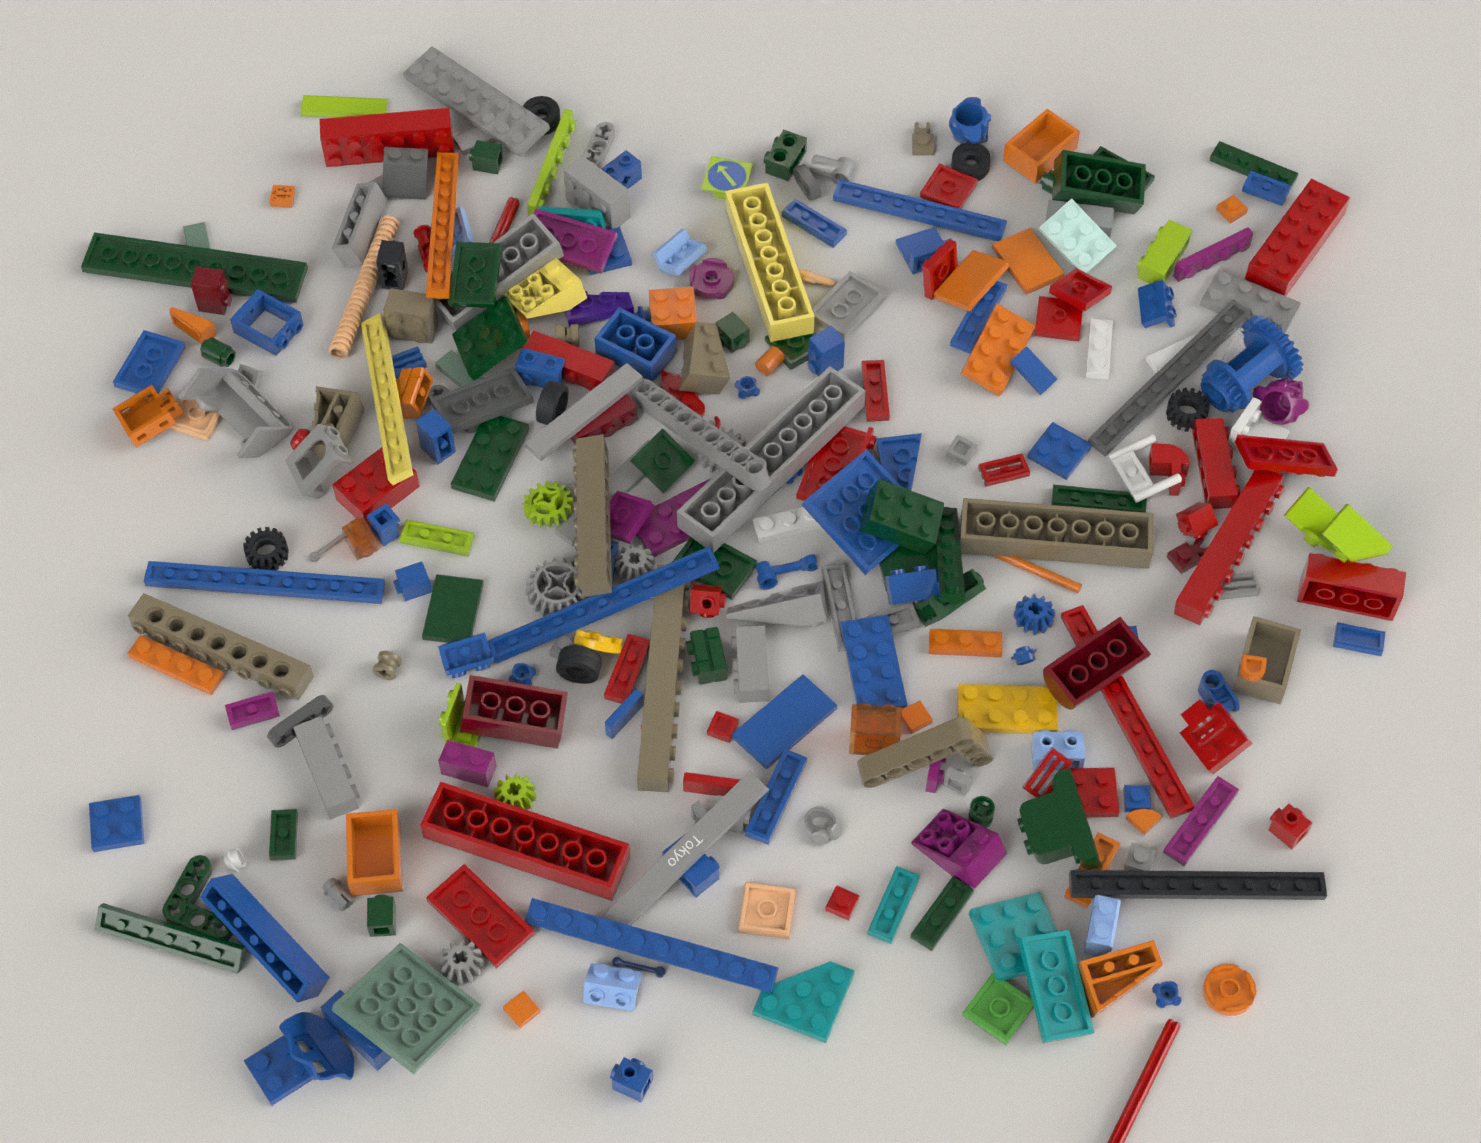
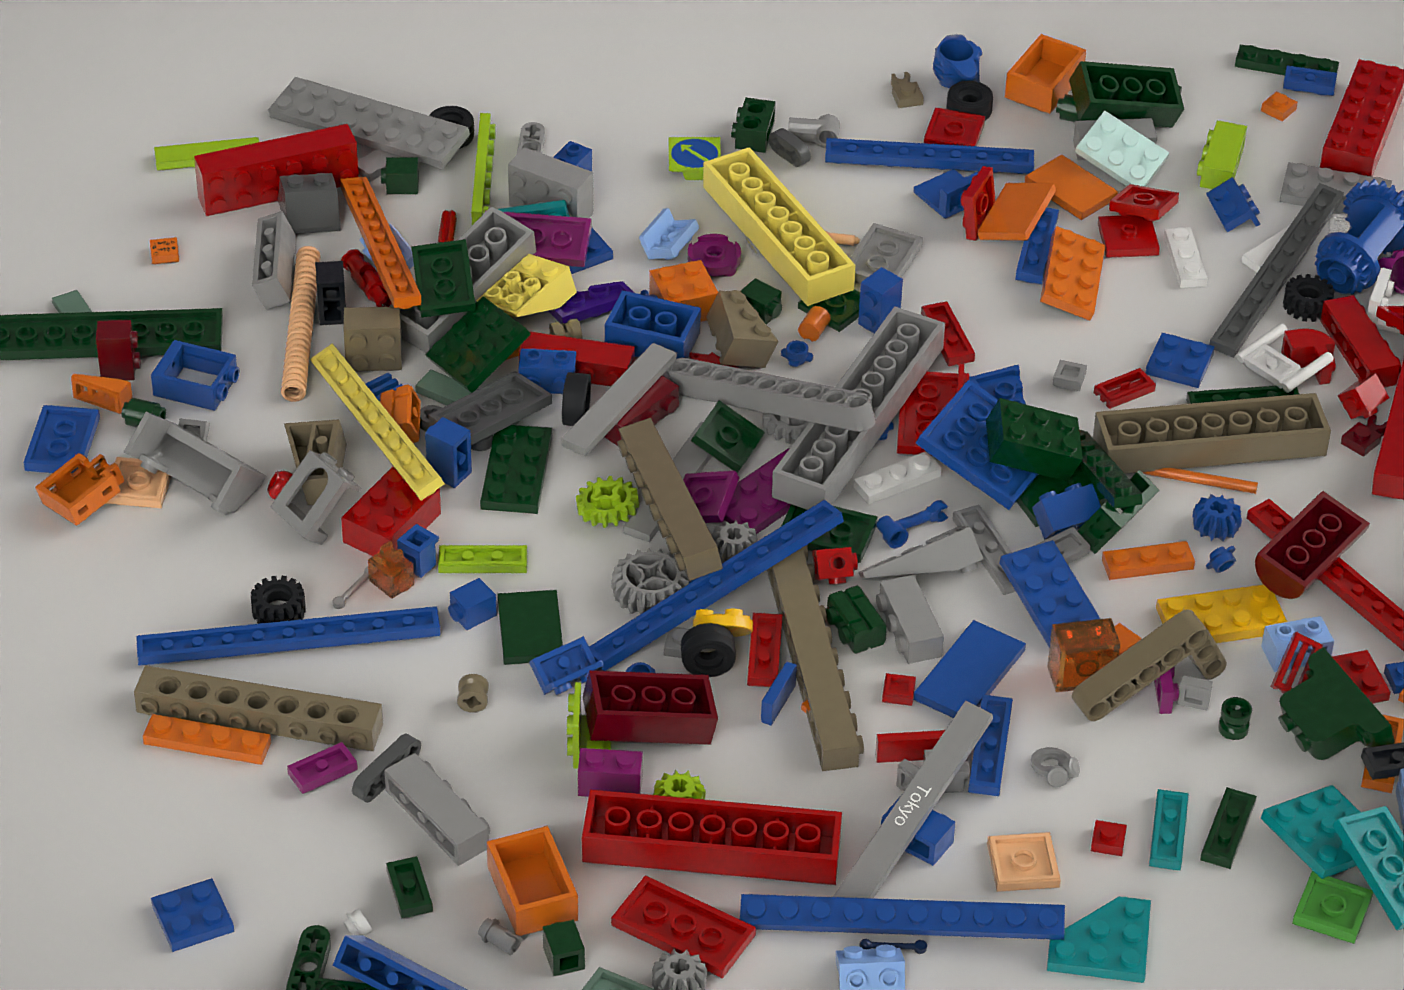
camera: 15 degrees left, 15 degrees down
(814, 223) = (814, 186): blue tile -> none
(961, 847) = (1225, 756): magenta slope -> none
(1033, 370) = (1121, 286): blue tile -> none
(1213, 254) = (1277, 149): magenta plate -> none

